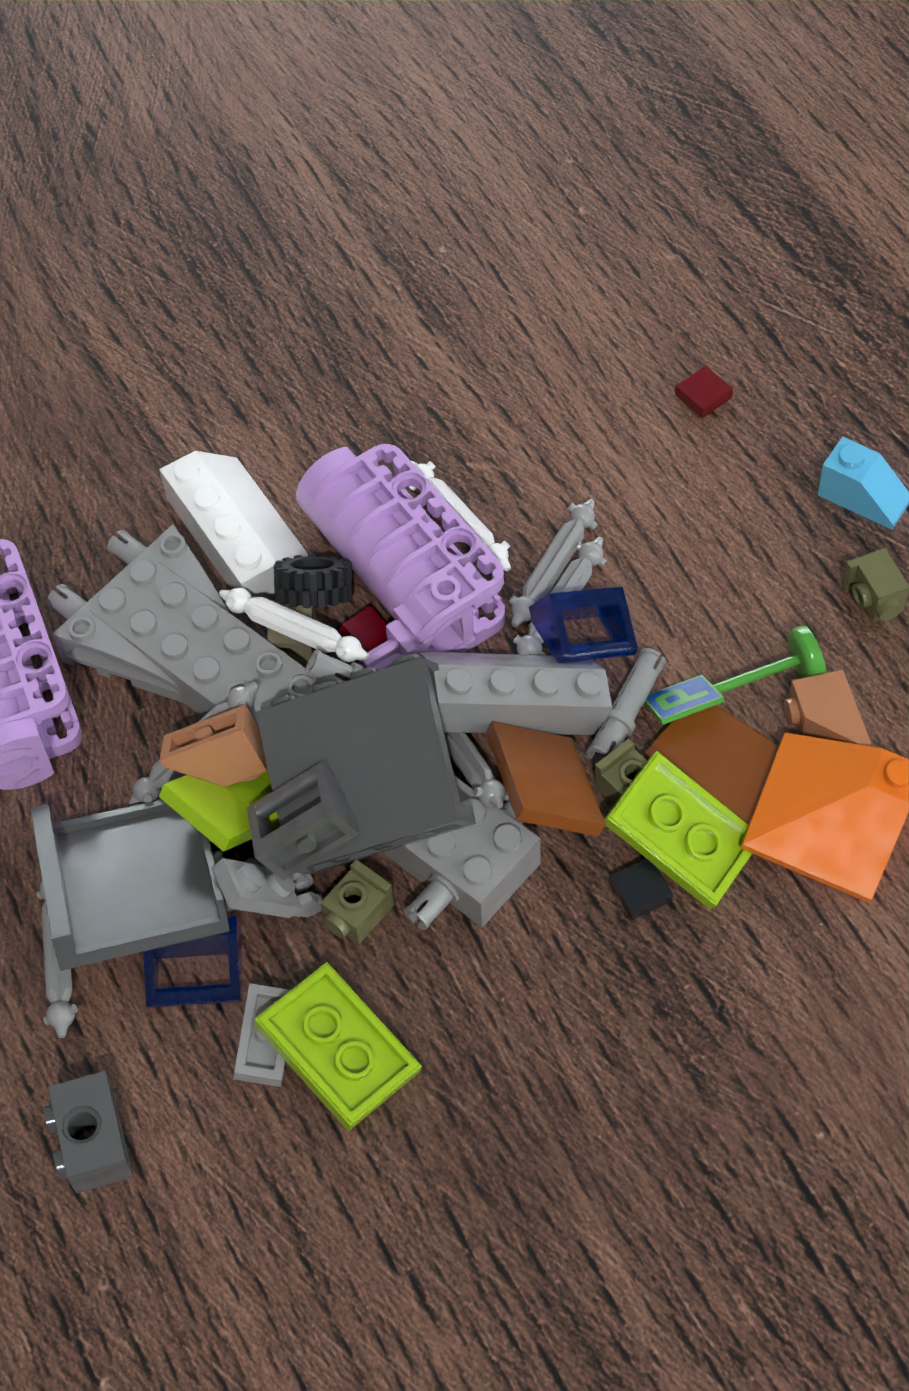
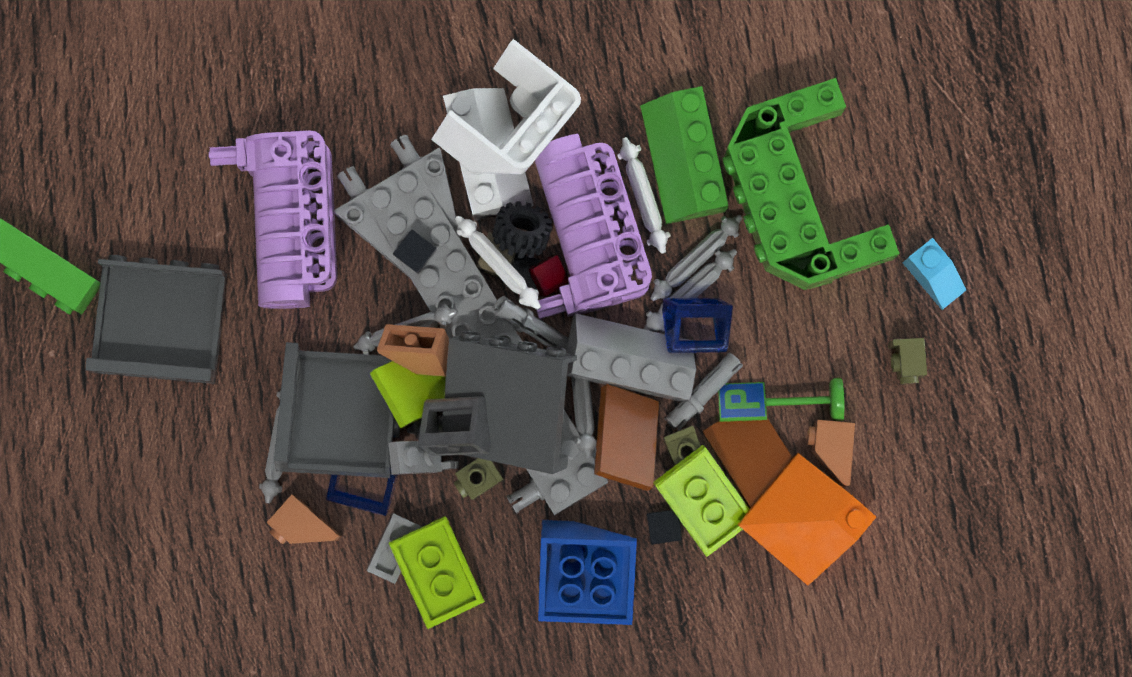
camera: 15 degrees right, 25 degrees up
(102, 1156) = (279, 561): dark grey brick -> none
(120, 1044) = (300, 524): none -> nougat slope
(176, 639) = (414, 251): none -> black tile
(282, 447) = (540, 98): none -> white windscreen
(495, 456) = (684, 155): none -> bright green slope
(557, 979) = (585, 574): none -> blue slope
(640, 456) = (778, 197): none -> bright green wedge
(703, 391) = (856, 148): dark red tile -> none

